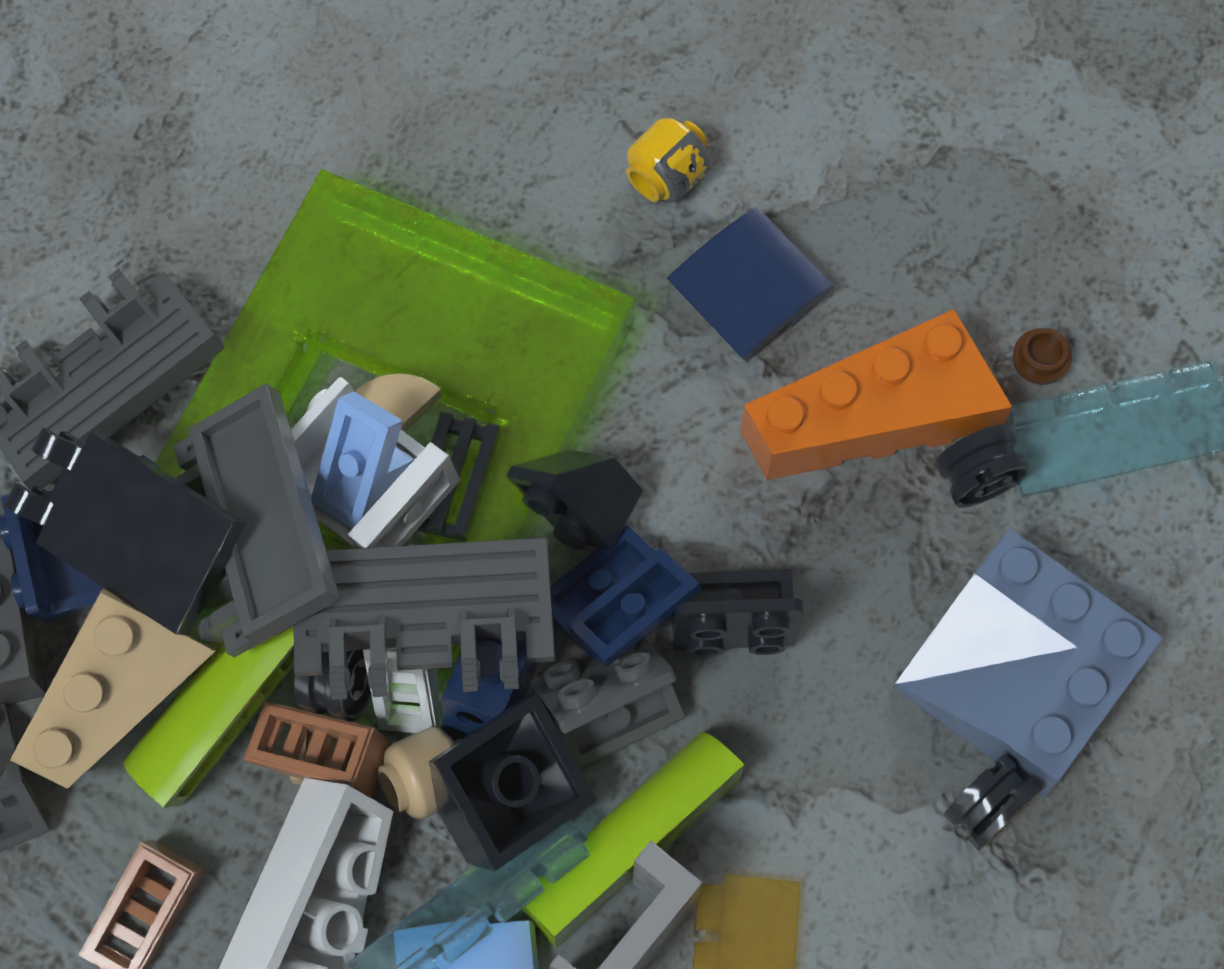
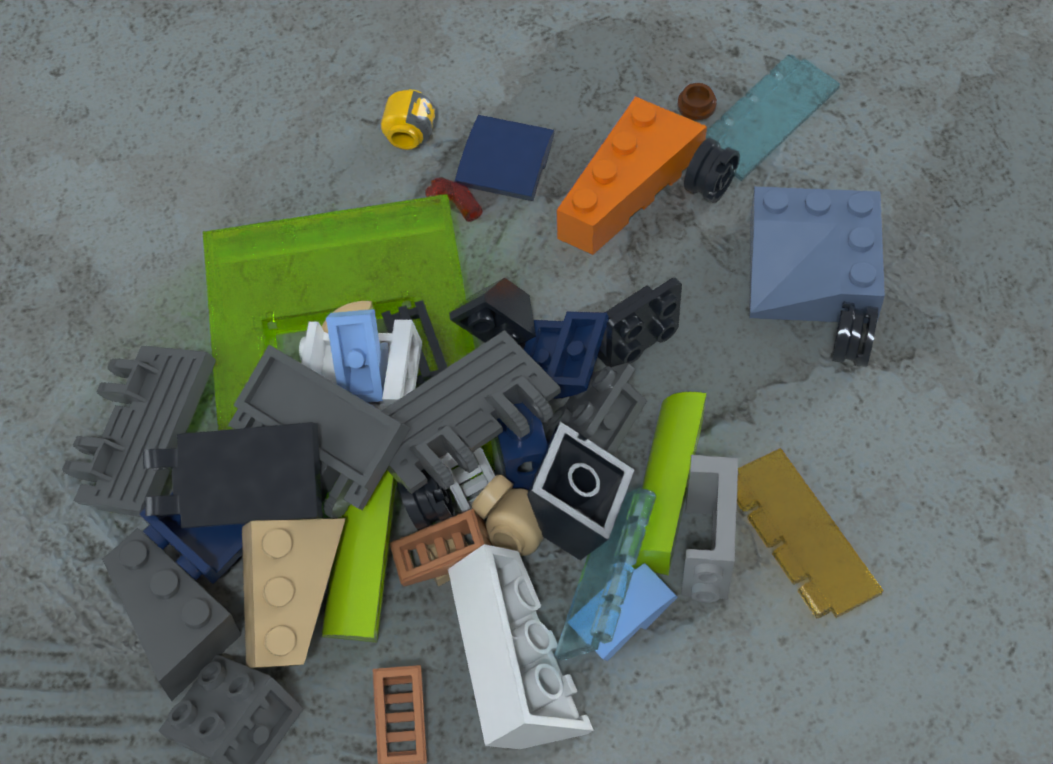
camera: 30 degrees left, 10 degrees down
(407, 725) = (491, 495): none -> tan tile
(657, 293) = (458, 194): none -> clear red arm

